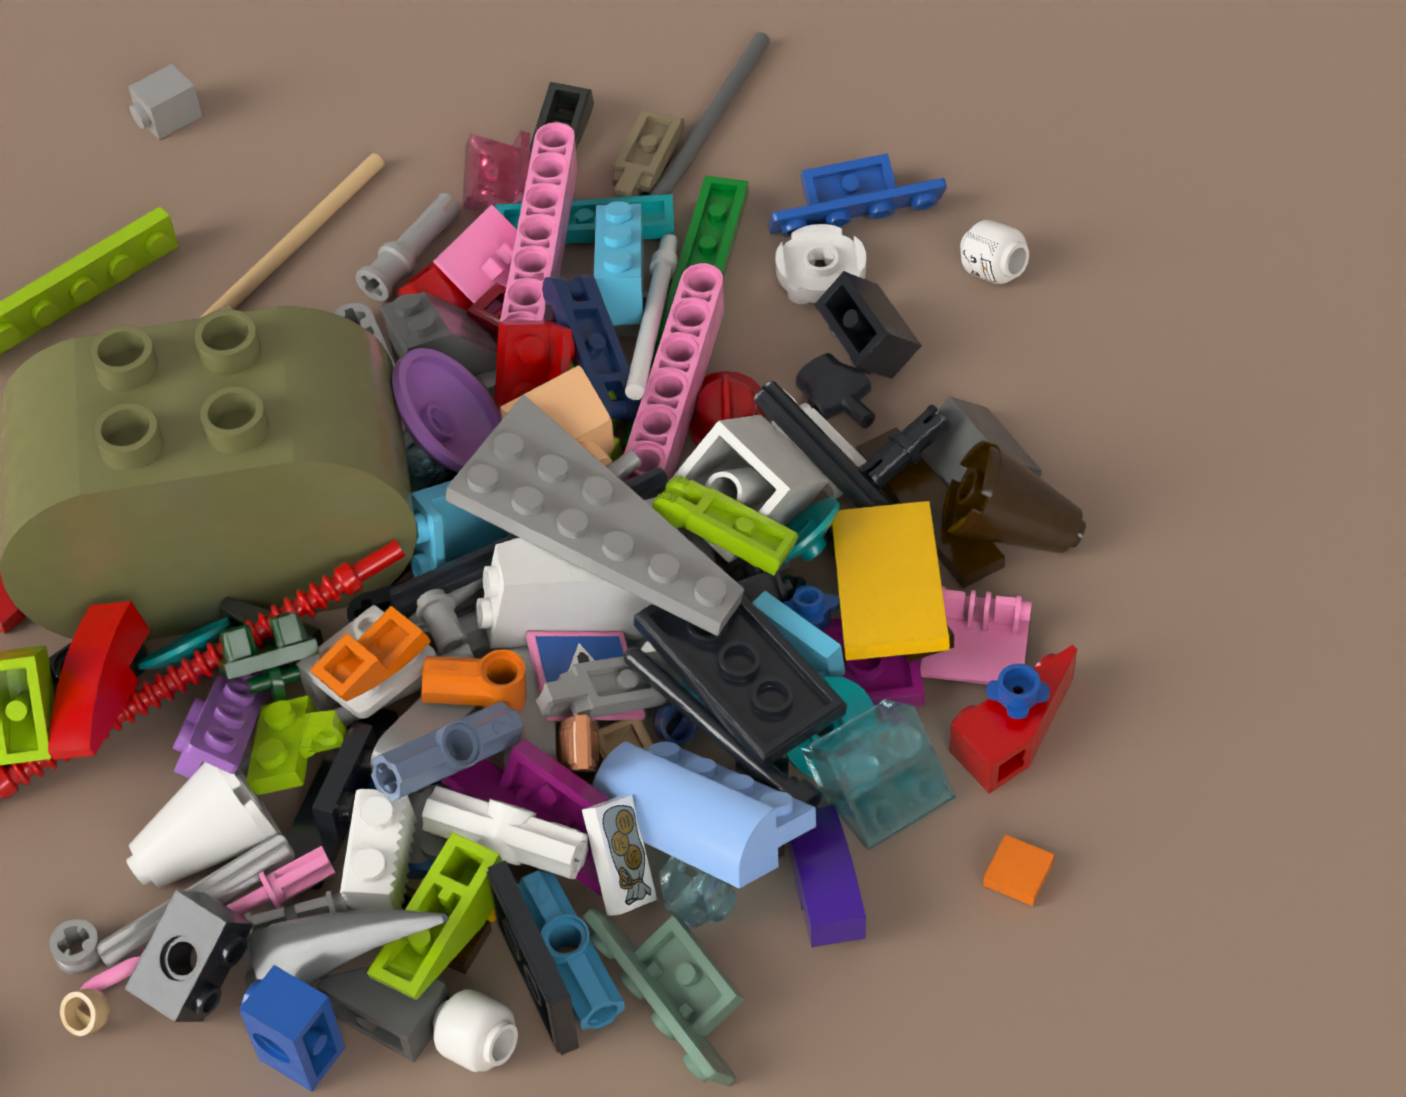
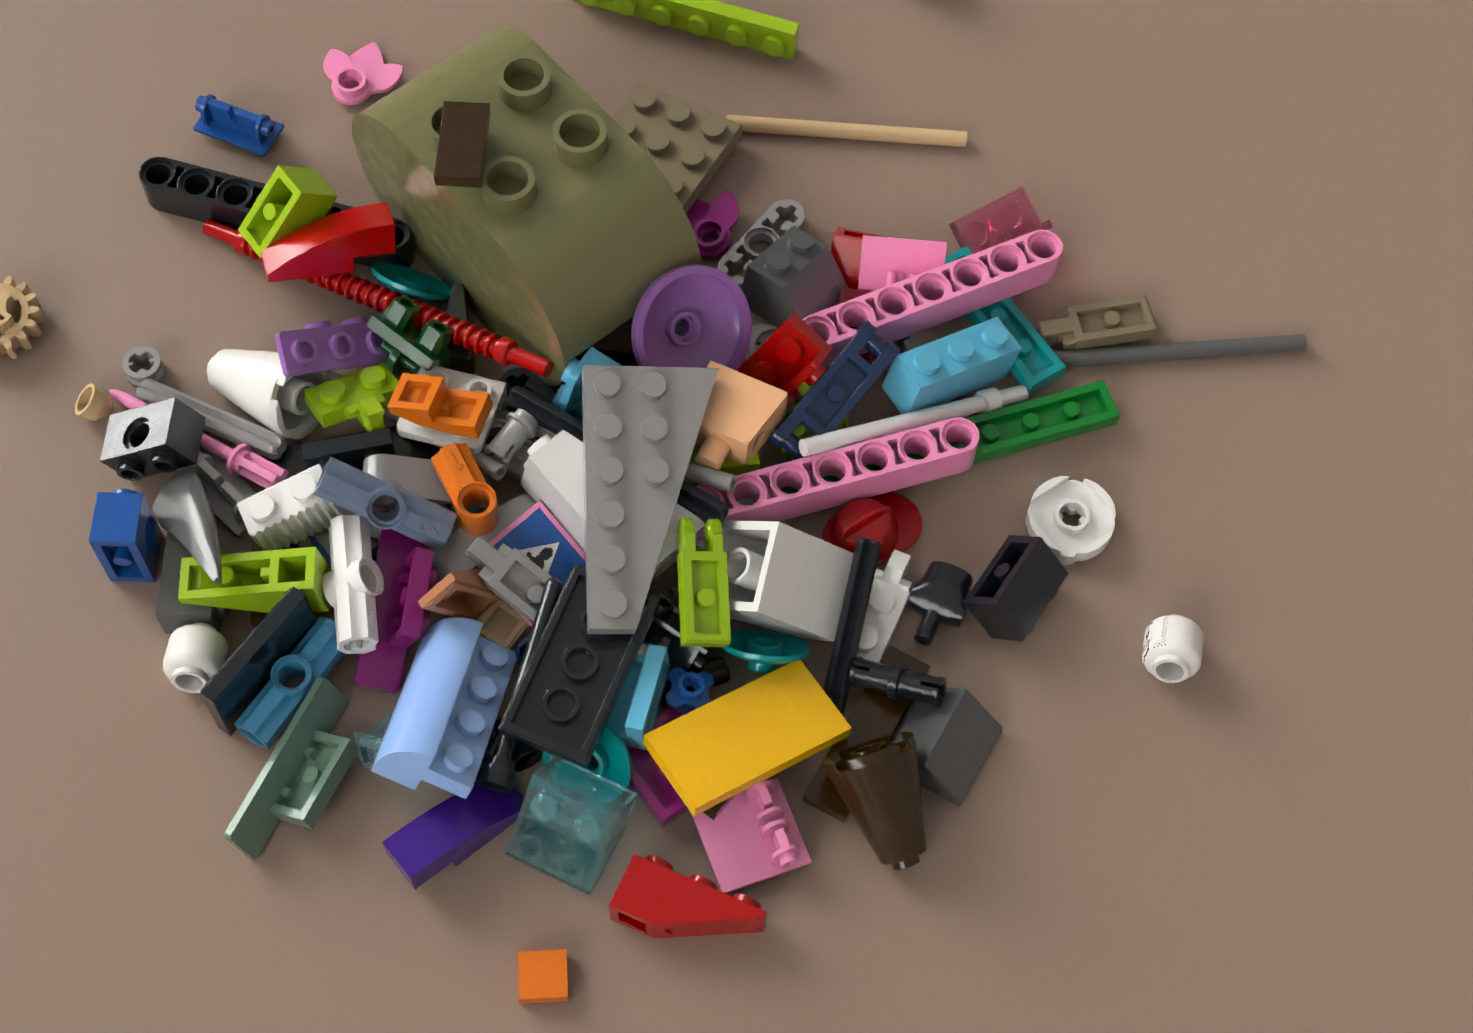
camera: 55 degrees right, 10 degrees up
(166, 424) = (462, 144): none -> dark brown tile
(398, 258) = (868, 210): light grey pin -> none
(569, 98) = (1109, 255): pearl dark grey slope -> none
(619, 855) = (381, 673): tile -> none
(854, 190) = (1167, 499): blue bracket -> none
(1020, 678) = (681, 876): blue plate -> none

